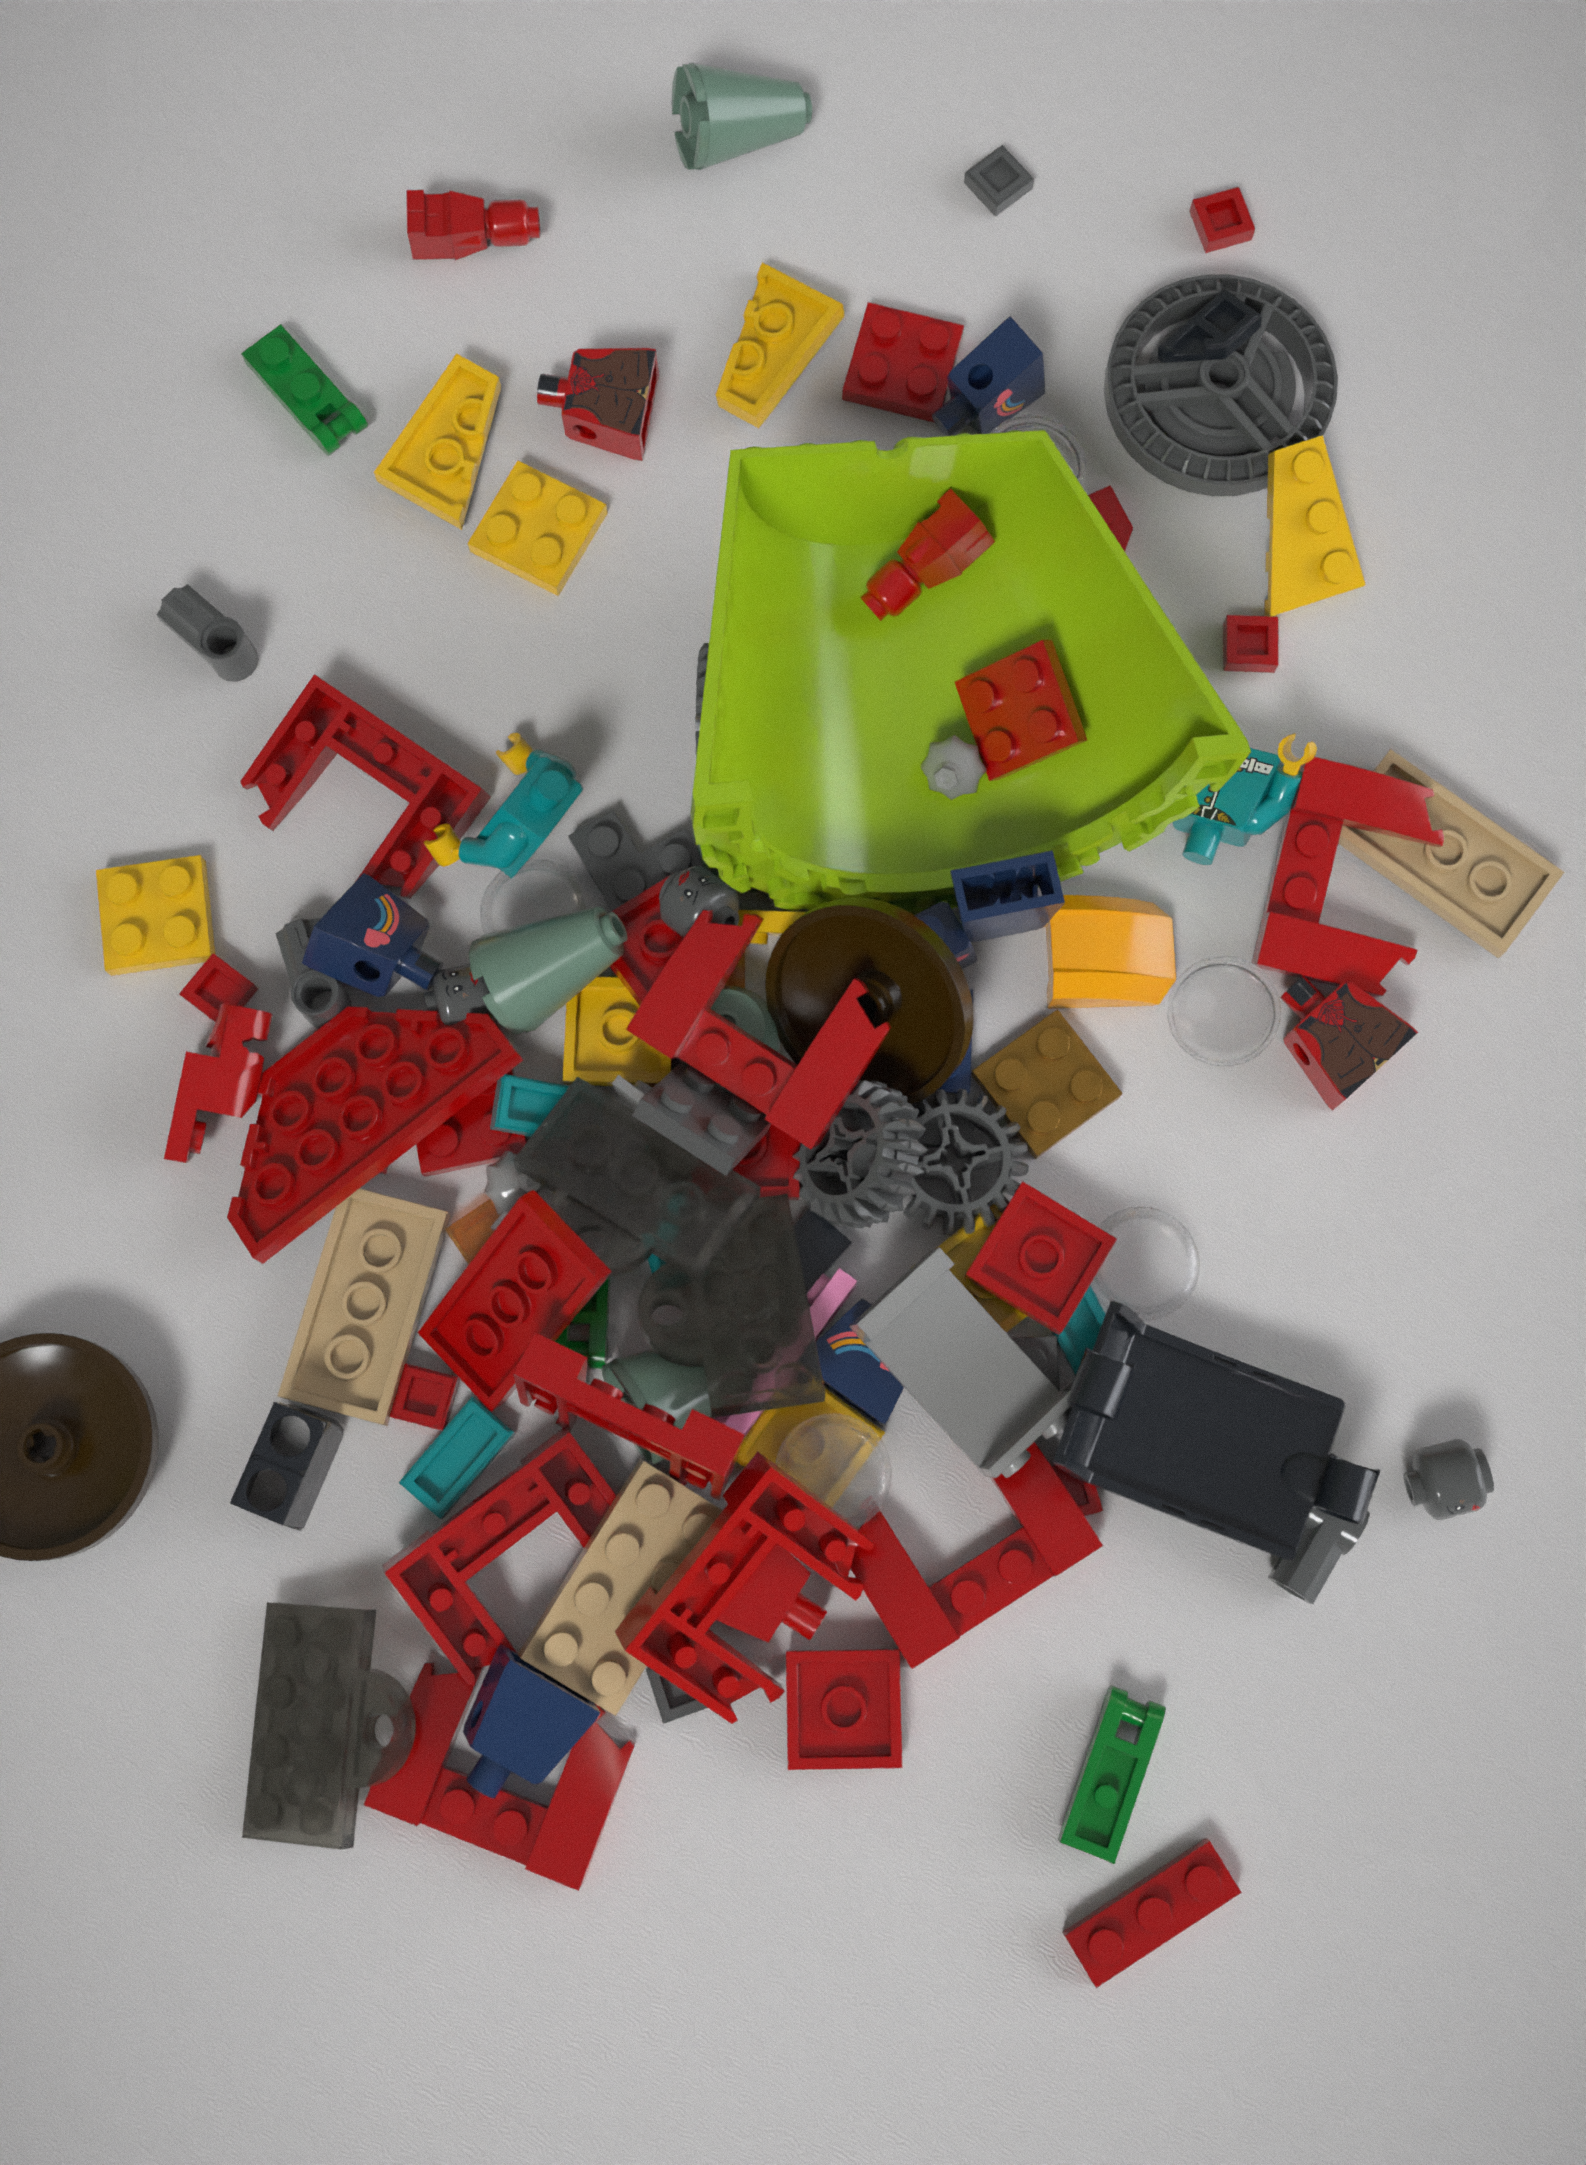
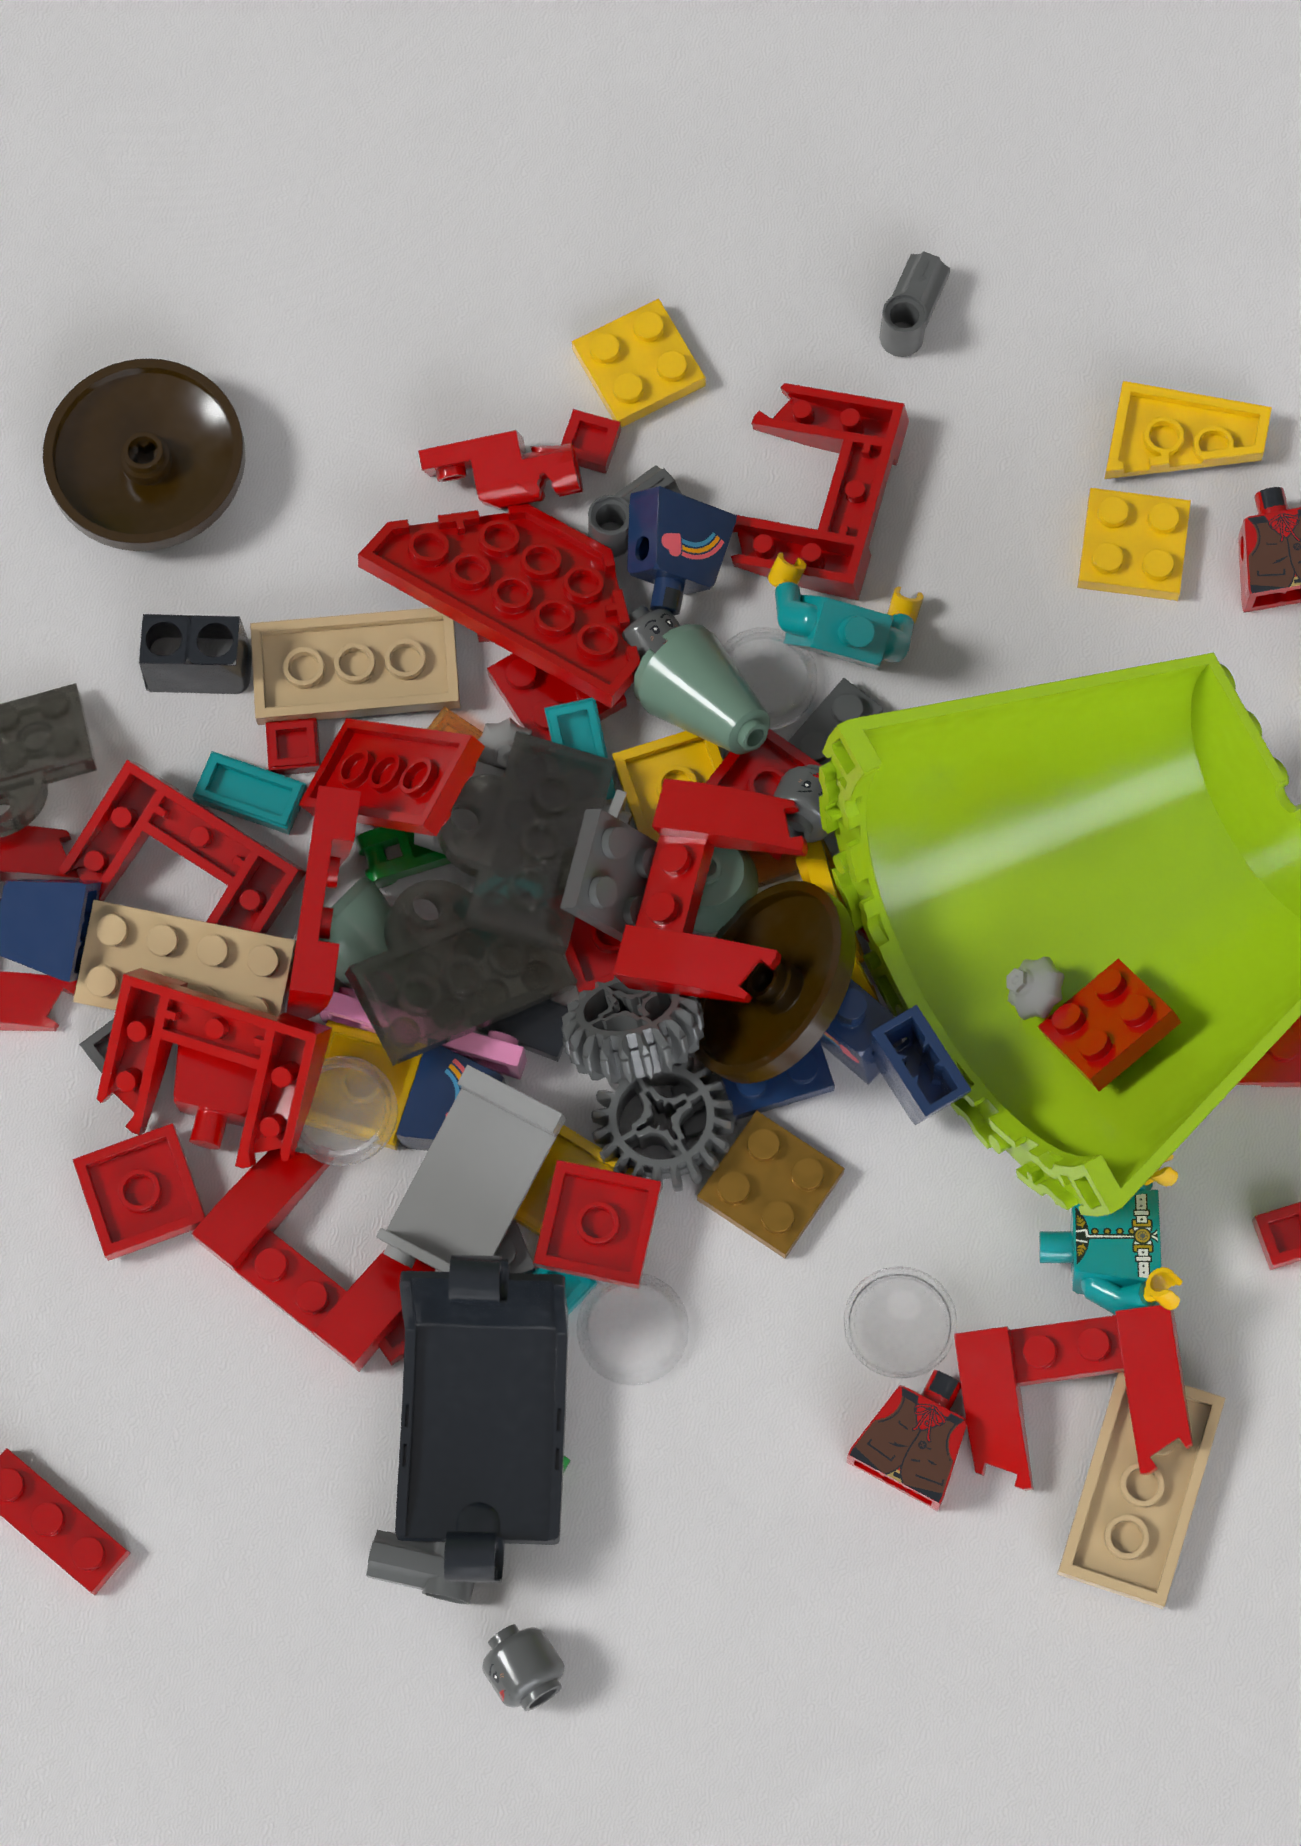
camera: 75 degrees right, 5 degrees down
(303, 389) = (1184, 292): green plate -> none
(930, 555) = (1228, 888): red piece -> none
(1109, 953) = (918, 1194): light orange slope -> none
(1111, 1776) = (156, 1445): green plate -> none

